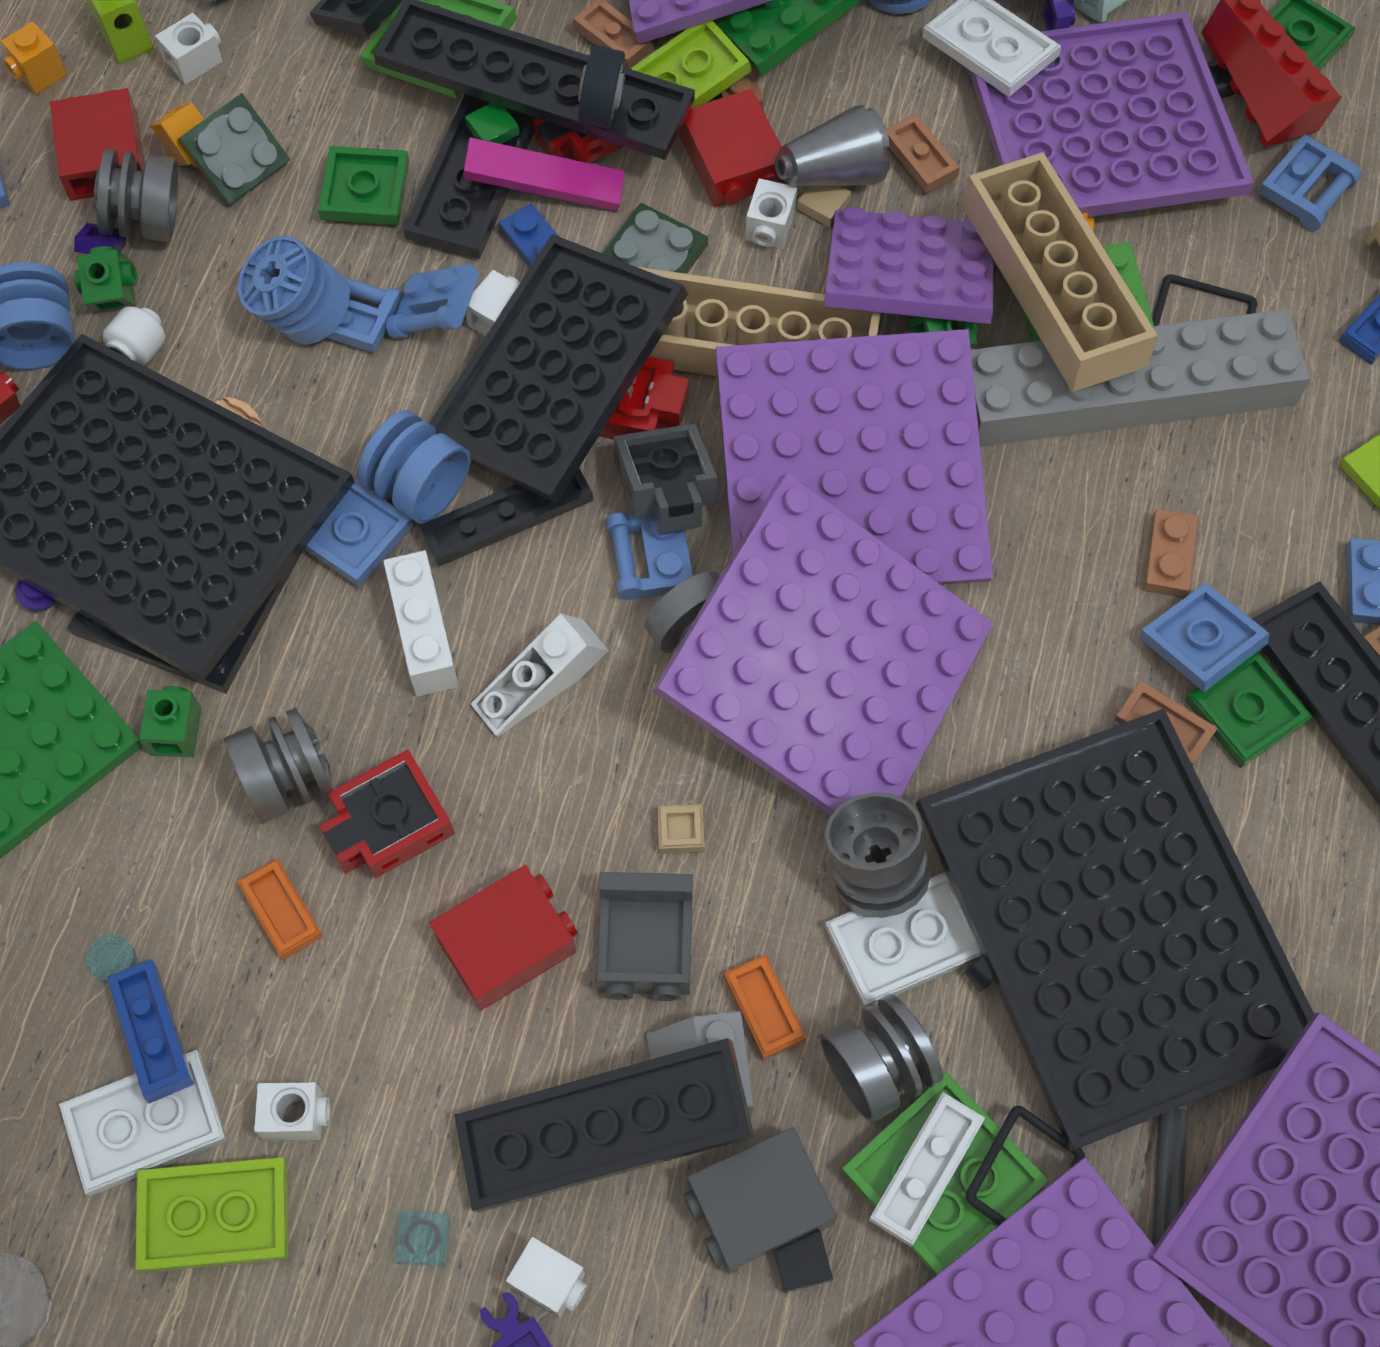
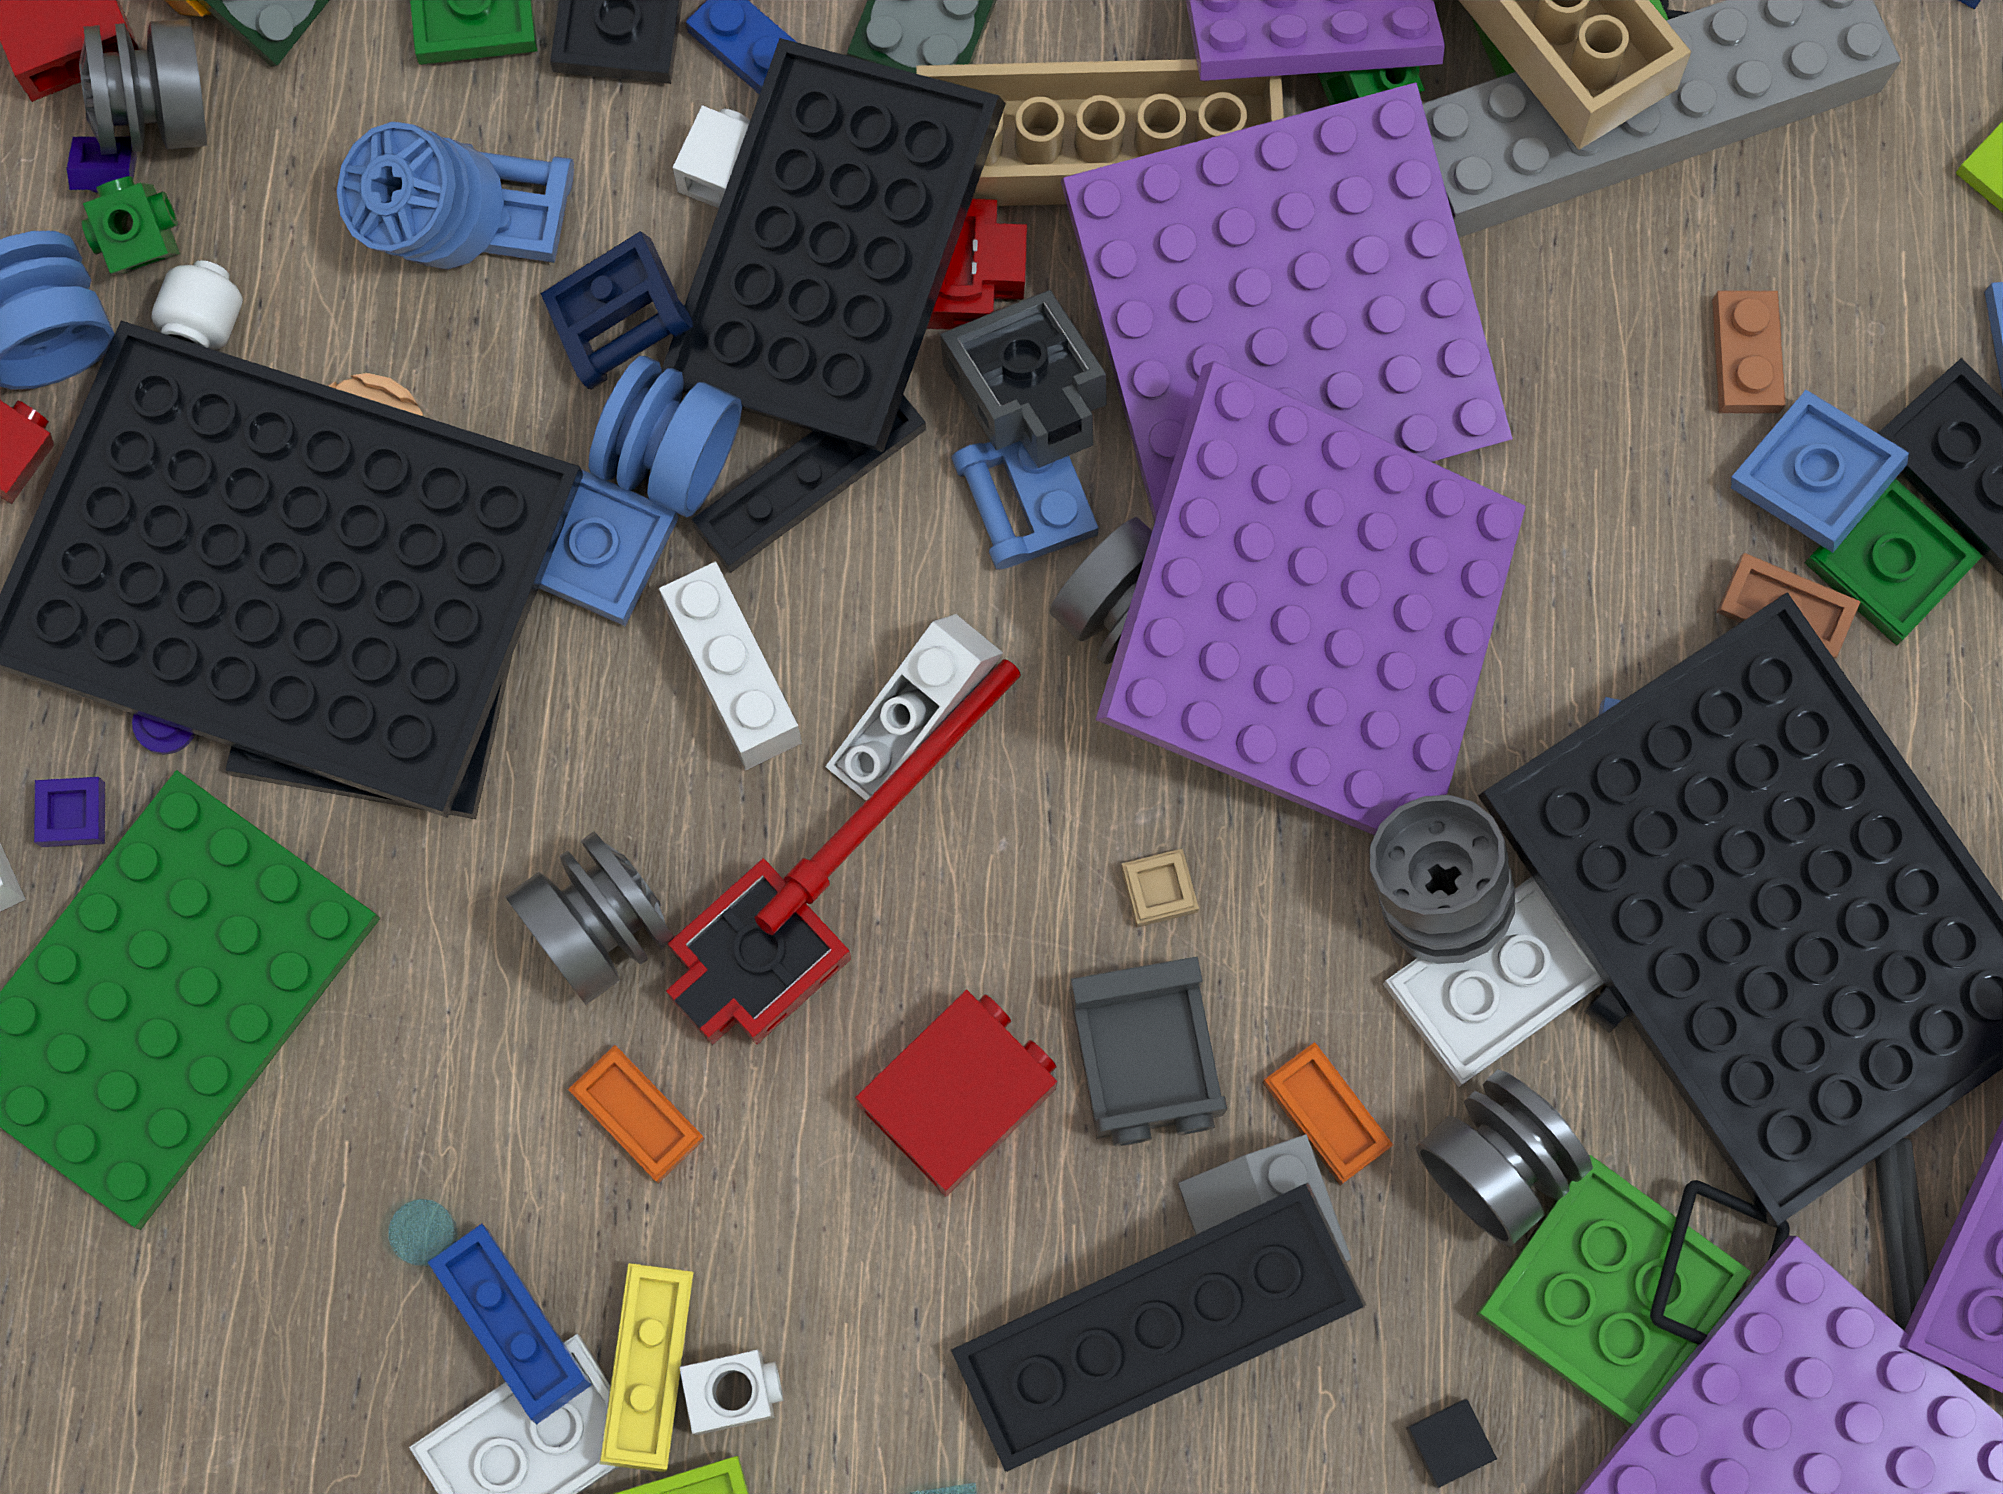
camera: 15 degrees left, 10 degrees up
(170, 722) = (413, 880): green brick -> none
(234, 1085) = (646, 1368): none -> light yellow tile
(401, 375) = (607, 294): none -> dark blue plate
(433, 300) = (621, 154): medium blue plate -> none
(435, 766) = (810, 877): none -> red bar
(758, 1200) = (1381, 1380): dark grey panel -> none
(926, 1169) = (1592, 1291): white tile -> none

